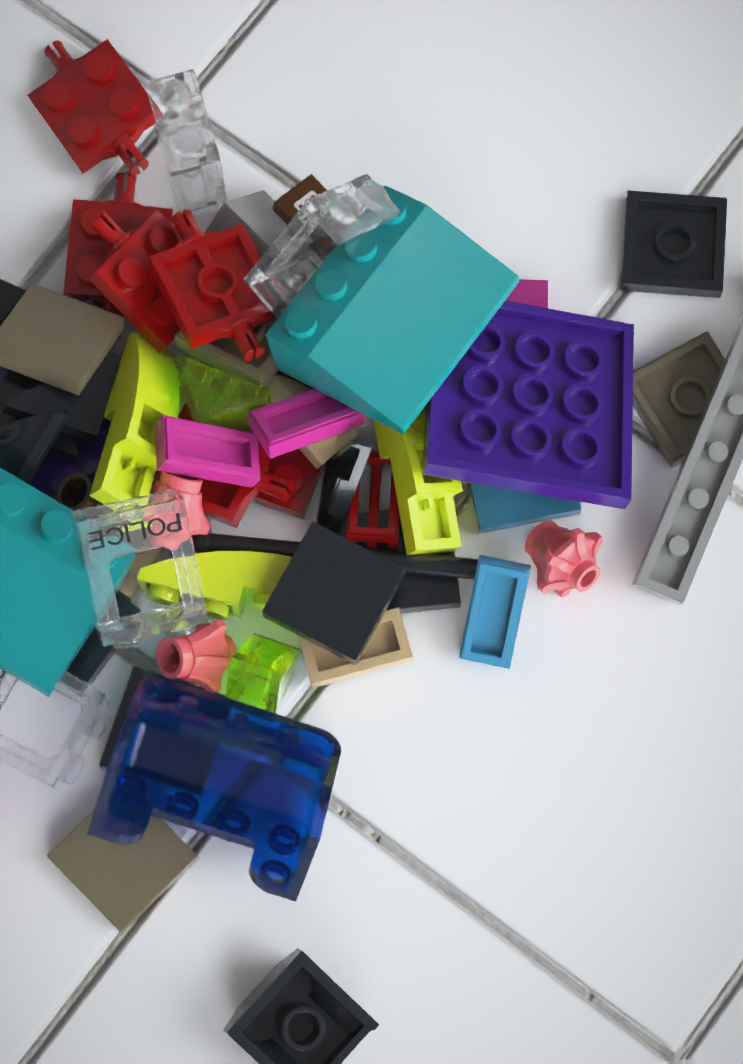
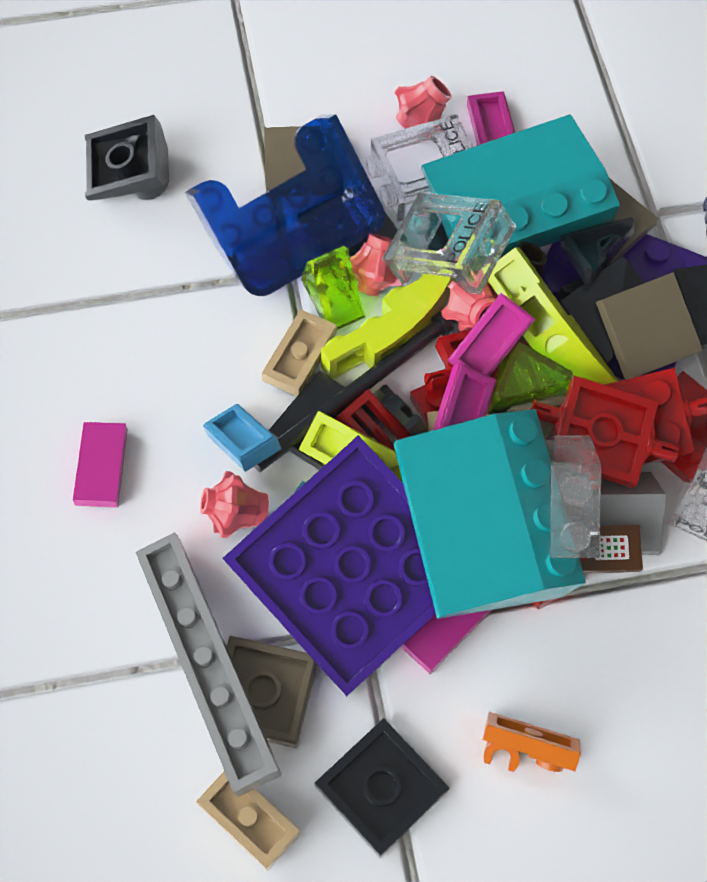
camera: 130 degrees right, 10 degrees down
(333, 593) = (337, 347): black tile -> none
(535, 159) = (549, 748): none -> orange plate
(631, 723) = (100, 464): none -> dark pink tile

